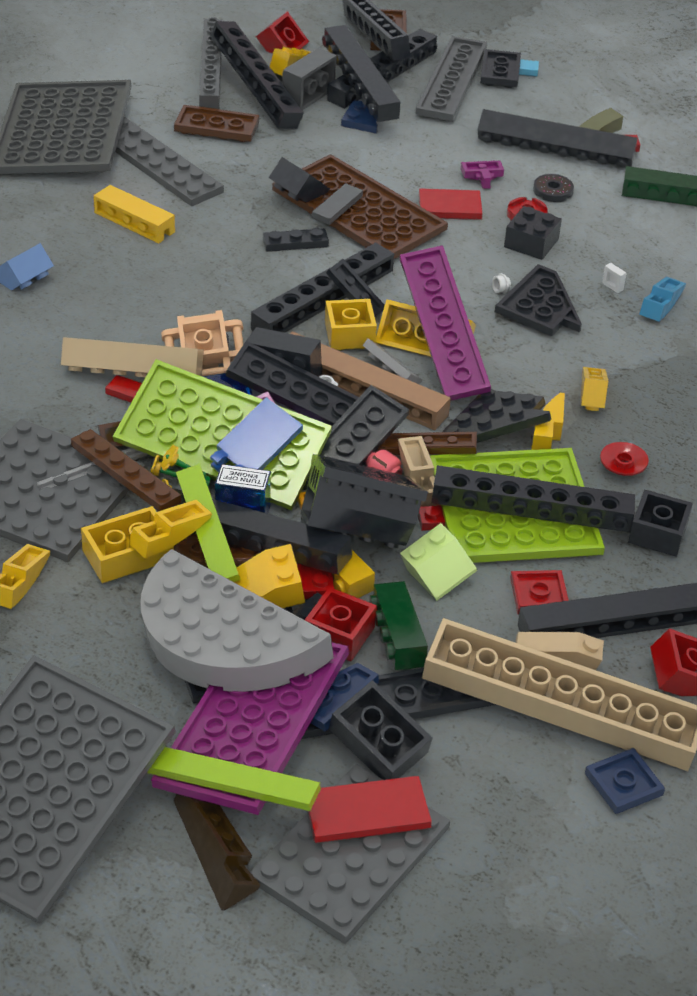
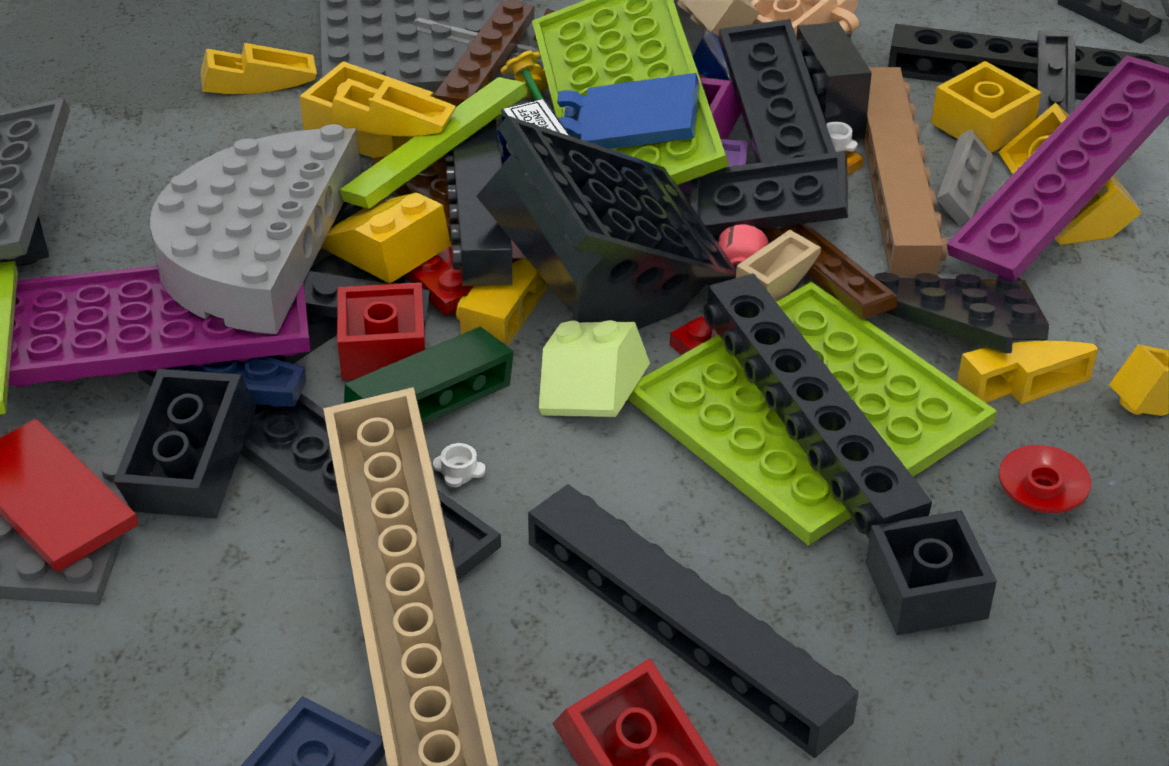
camera: 60 degrees right, 0 degrees up
(538, 587) = (659, 505): red tile -> none
(565, 645) = (522, 571): tan slope -> none

